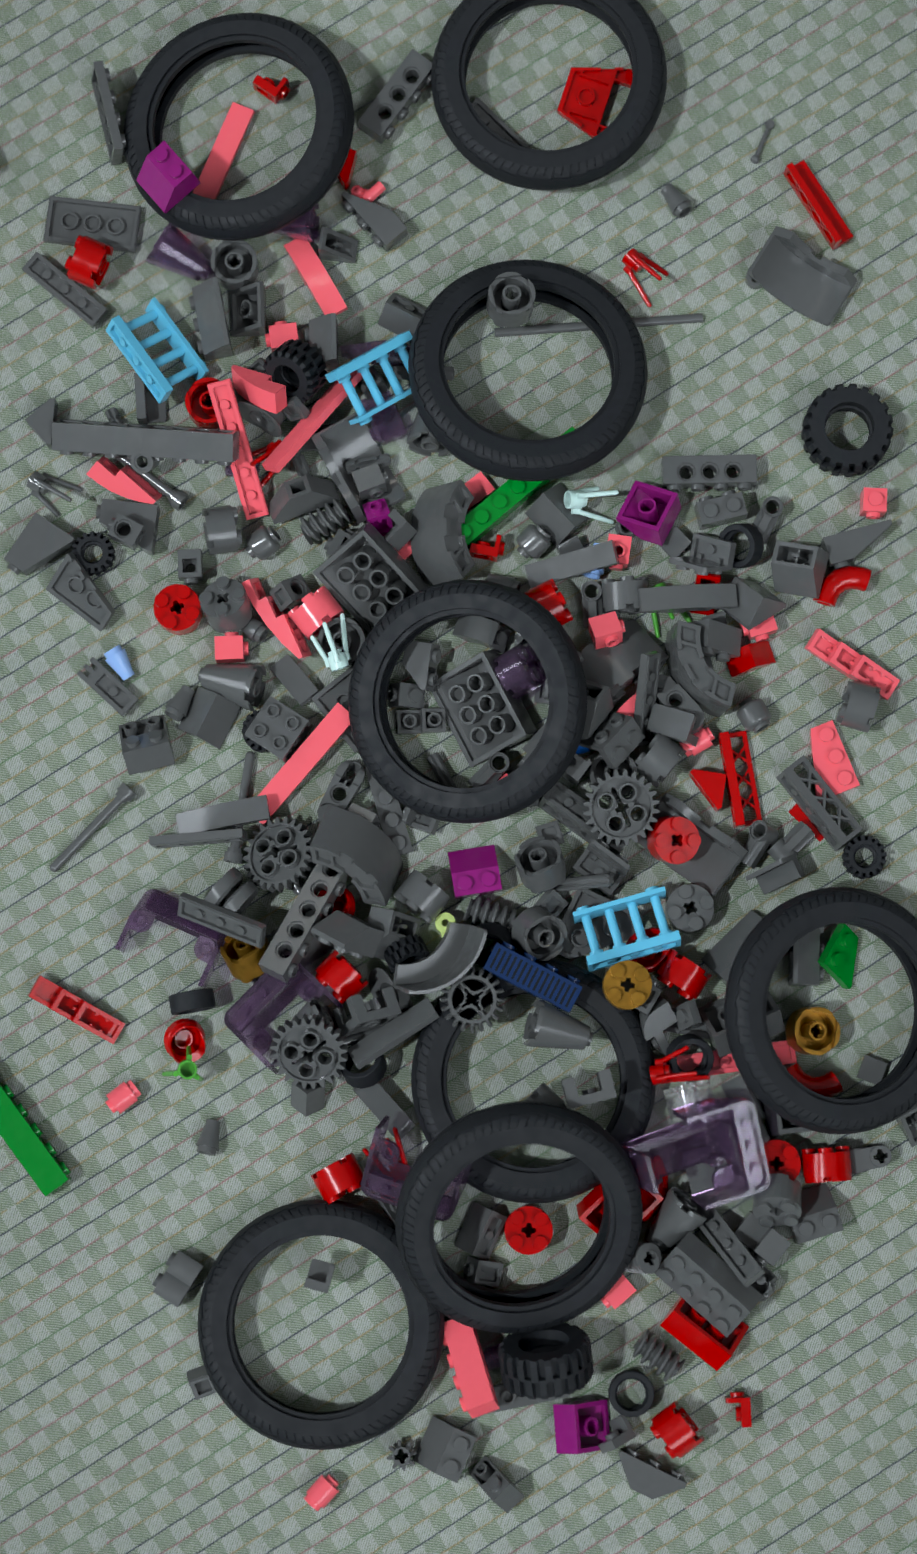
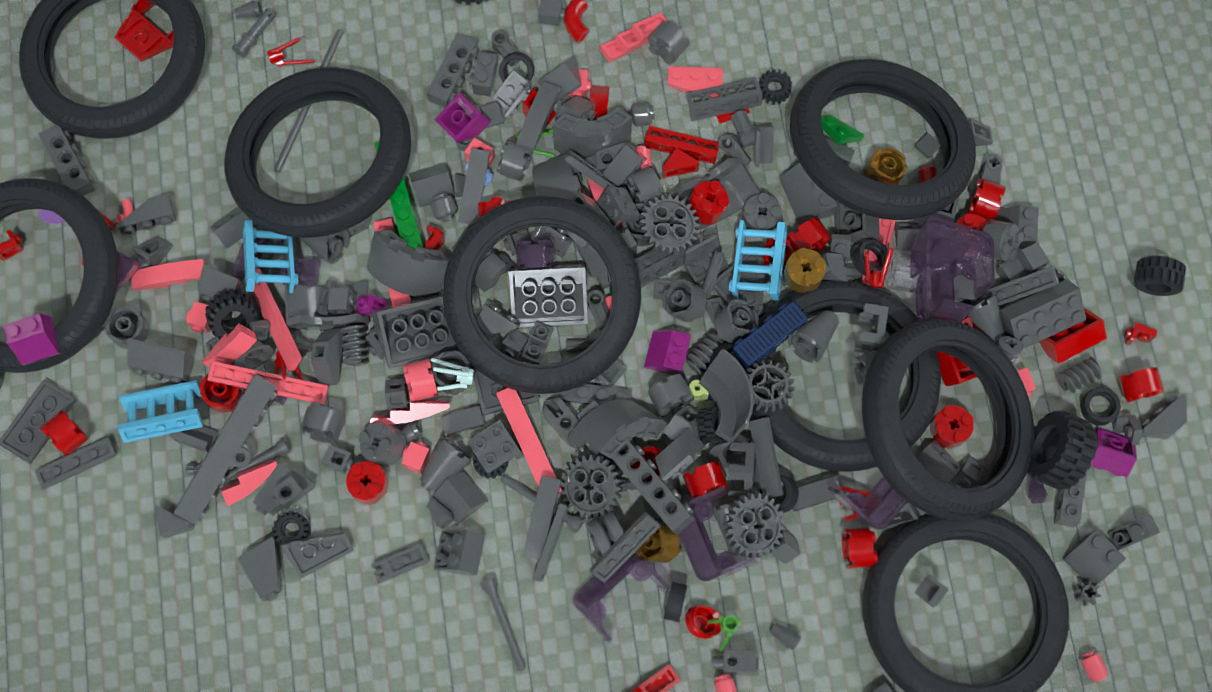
camera: 70 degrees left, 10 degrees down
(40, 484) = (216, 546): dark grey plant -> none
(119, 662) = (384, 546): light blue cone -> none
(159, 1105) = (746, 663): none -> dark grey torso
(179, 255) = (96, 365): clear purple cone -> none
(224, 151) = (36, 299): coral tile -> none
(248, 310) = (166, 331): dark grey slope -> none
(263, 542) = (347, 398): dark grey head -> none
(400, 533) = (389, 292): dark grey panel -> none
(470, 1368) = (1044, 509): coral brick -> none
(510, 300) = (261, 135): dark grey brick -> none
(578, 498) = (429, 162): light aqua plant -> none
(591, 606) = (511, 188): dark grey piece -> none
(606, 630) = (534, 181): coral brick -> none
(640, 219) = (249, 39): none -> dark grey pin
(798, 569) = (552, 39): dark grey slope -> none
(820, 1405) = (1159, 275): none -> black tyre

